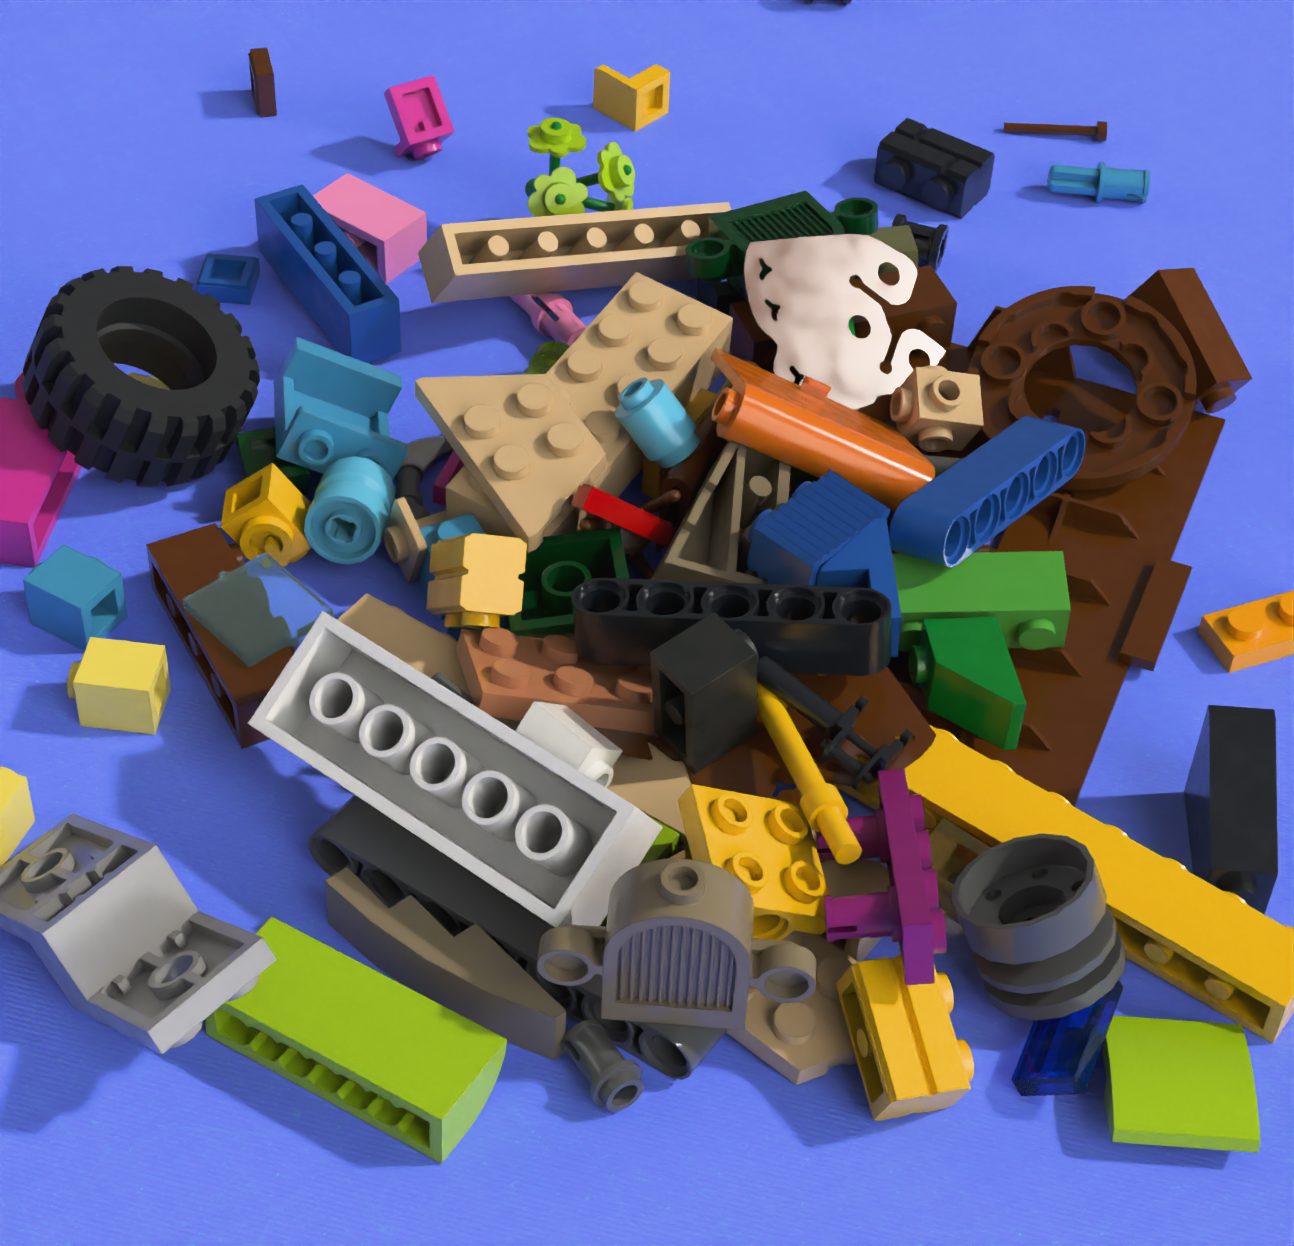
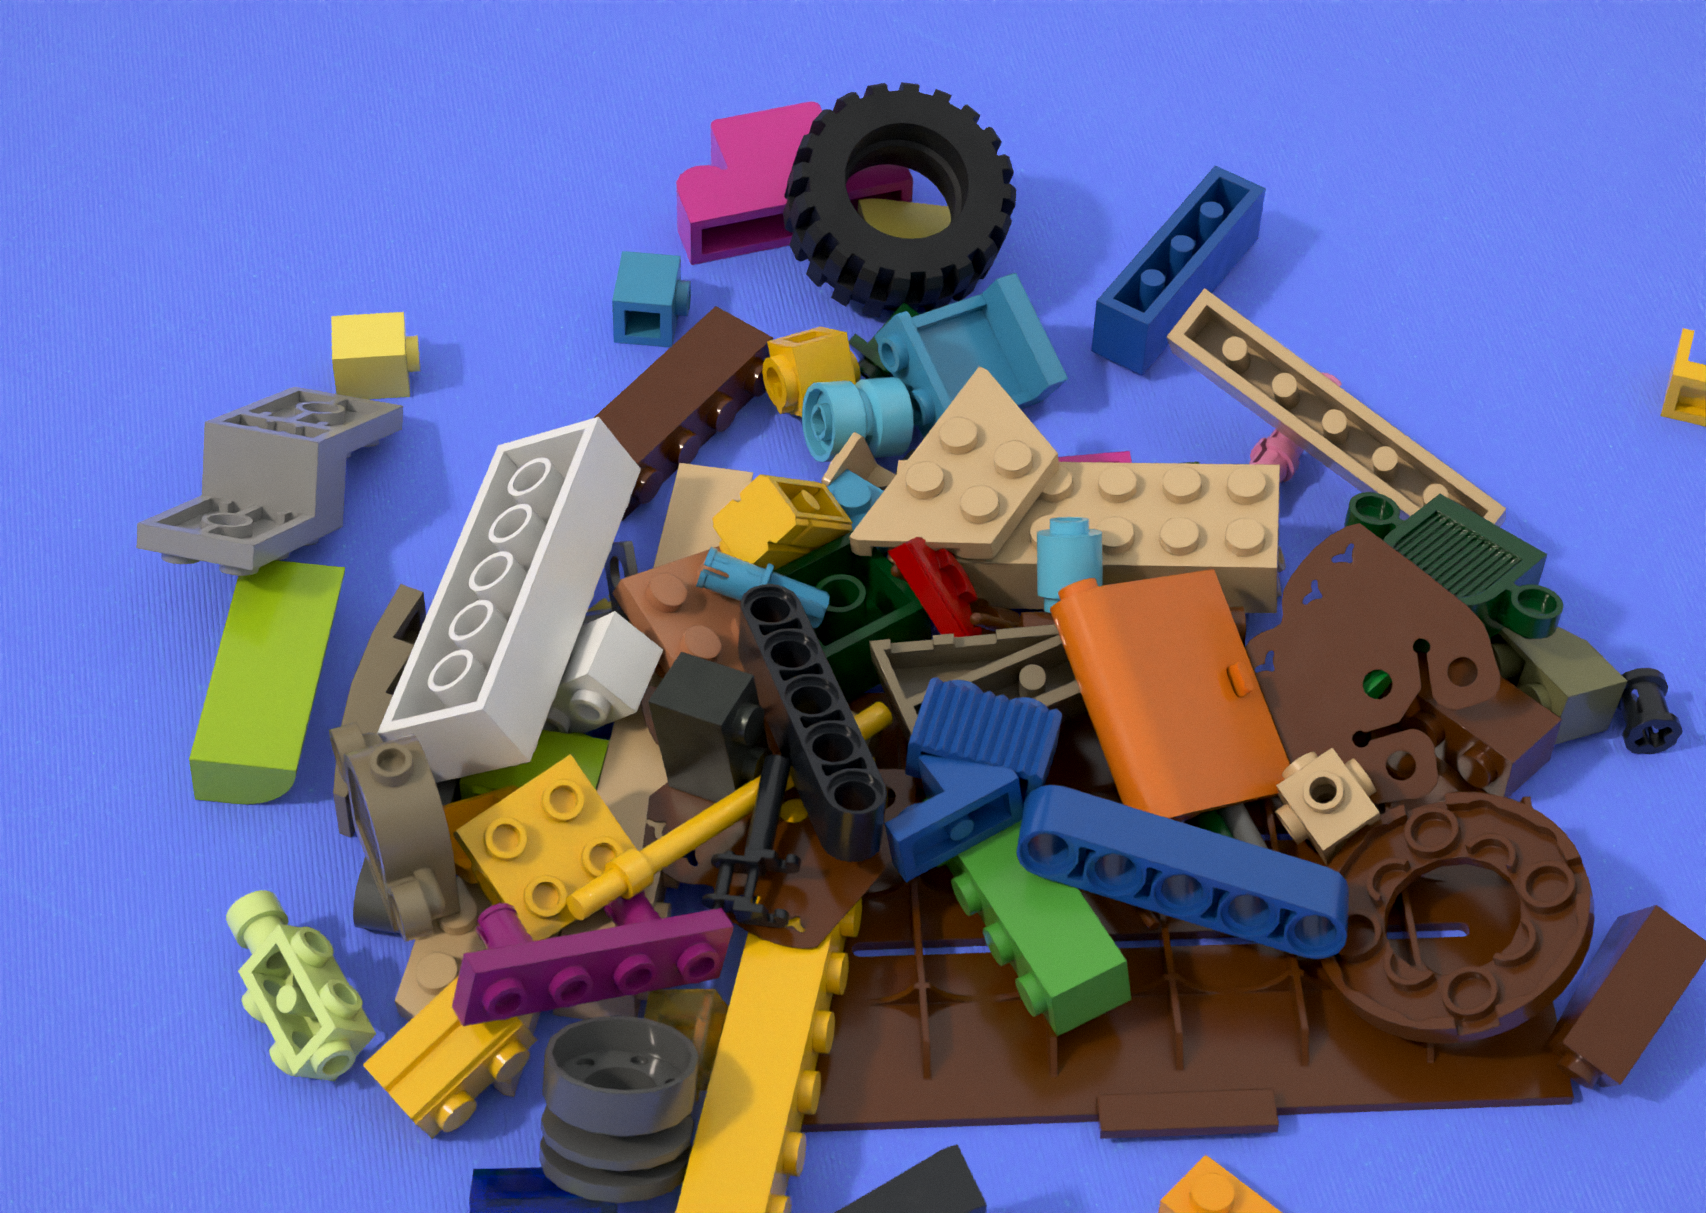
camera: 65 degrees right, 5 degrees up
(120, 685) = (566, 372): light yellow brick -> none
(229, 278) = (1144, 211): blue tile -> none
(256, 609) = (679, 408): clear light blue piece -> none
(262, 82) = (1452, 104): tile -> none
(376, 223) = (1290, 271): bright pink brick -> none
(419, 117) = (1478, 231): dark pink bracket -> none
(545, 613) = (747, 575): none -> dark azure axle
(561, 190) = (1458, 394): lime plant -> none
(612, 1079) = (320, 872): dark grey pin -> none
(773, 1142) = (297, 991): none -> yellowish green brick
(970, 677) = (935, 955): green slope -> none

